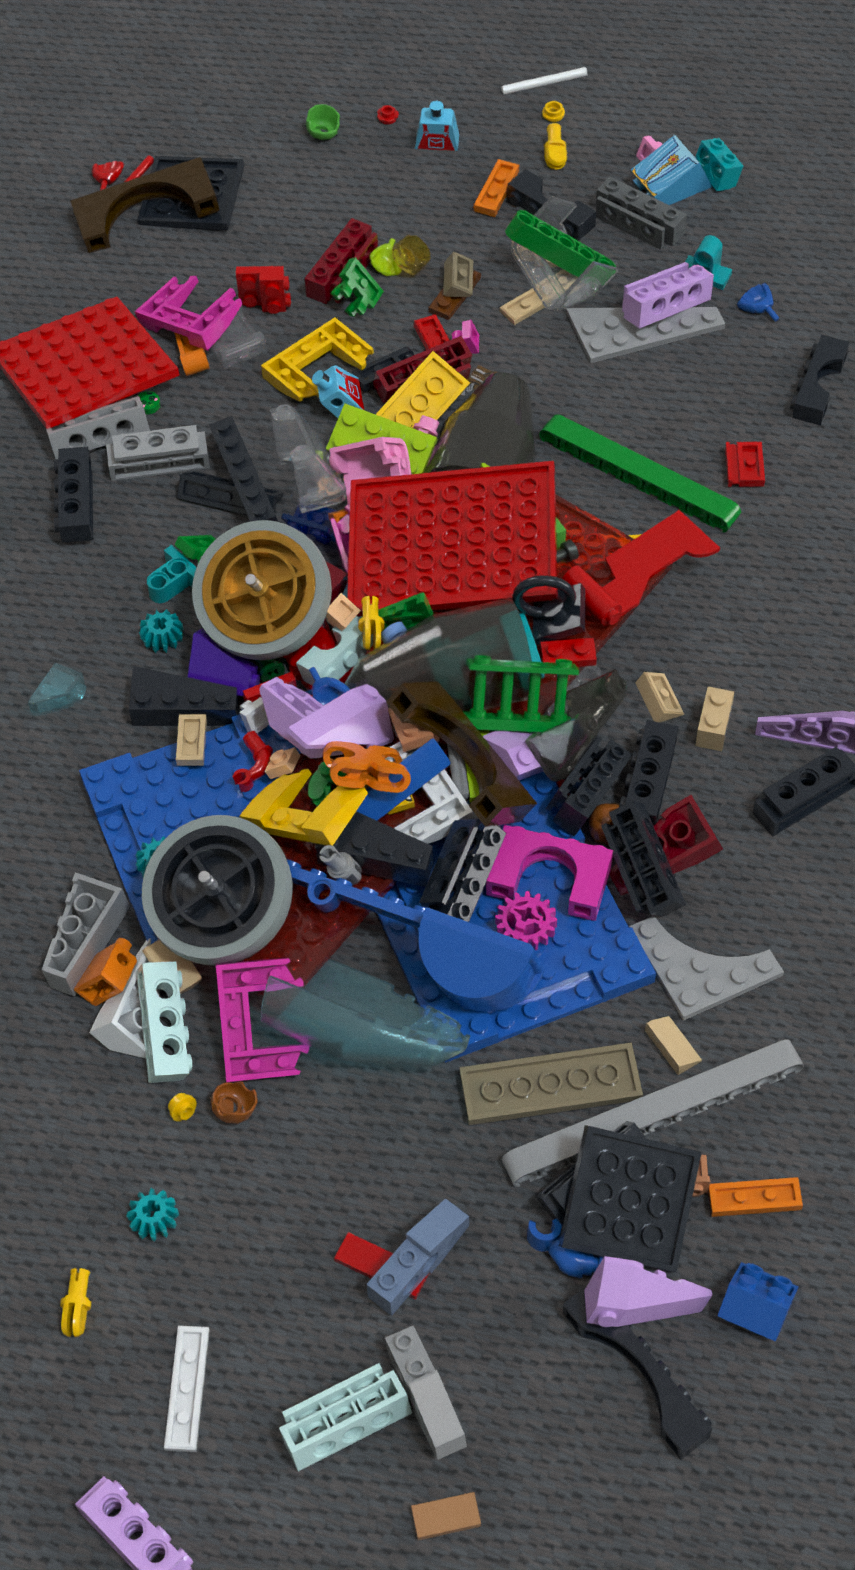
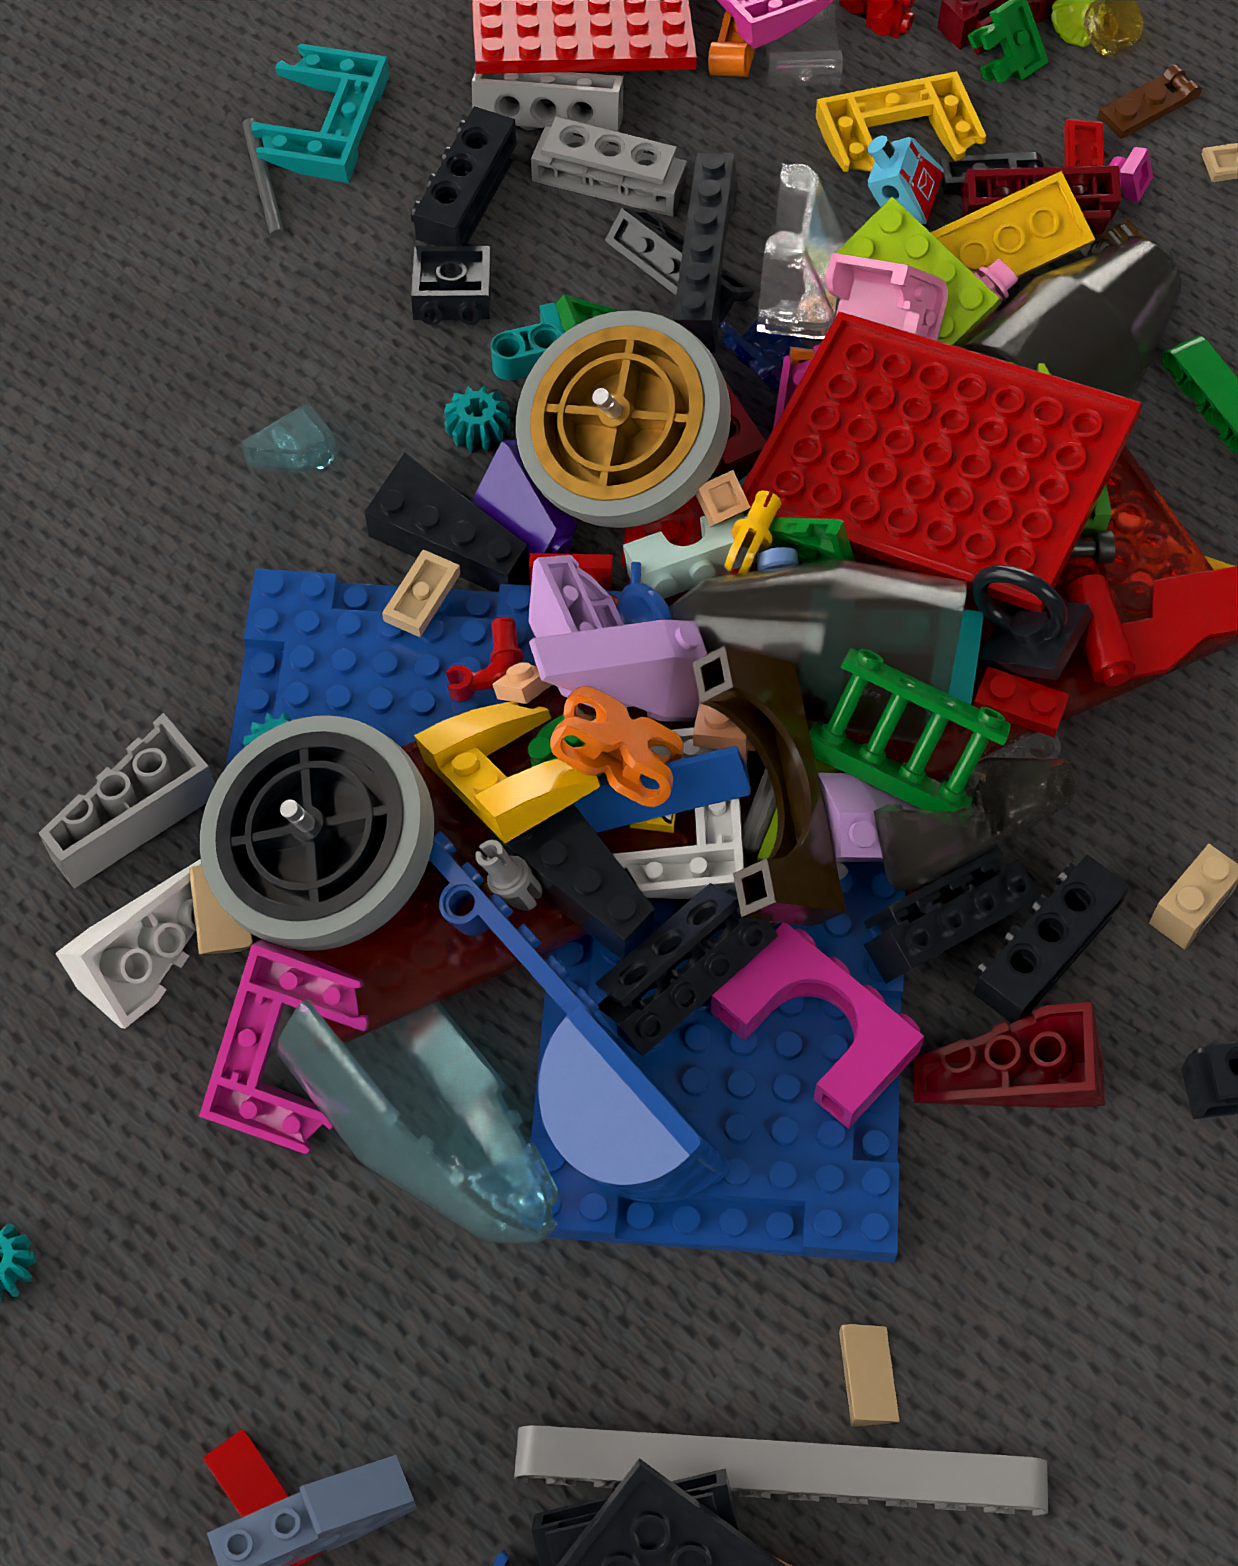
camera: 25 degrees right, 5 degrees up
(100, 559) = (451, 283): none -> black plate
(107, 973) = (129, 876): orange torso -> none
(150, 401) = (639, 92): green tile -> none
(160, 1065) = (173, 916): light aqua brick -> none
(182, 1106) = (122, 1122): yellow plate -> none
(228, 1094) = (180, 1145): dark orange hair -> none
(254, 715) = (518, 596): white tile -> none
(269, 668) = (594, 538): dark green wheel -> none
(458, 276) = (1165, 80): dark tan slope -> none
(524, 918) = (741, 1062): dark pink gear -> none
(550, 1083) = (654, 1347): dark tan plate -> none
(597, 818) = (943, 977): dark orange hair -> none
(642, 861) = (983, 1054): black brick -> none
(658, 696) = (1132, 823): tan slope -> none
(699, 979) = (960, 1290): light grey plate -> none

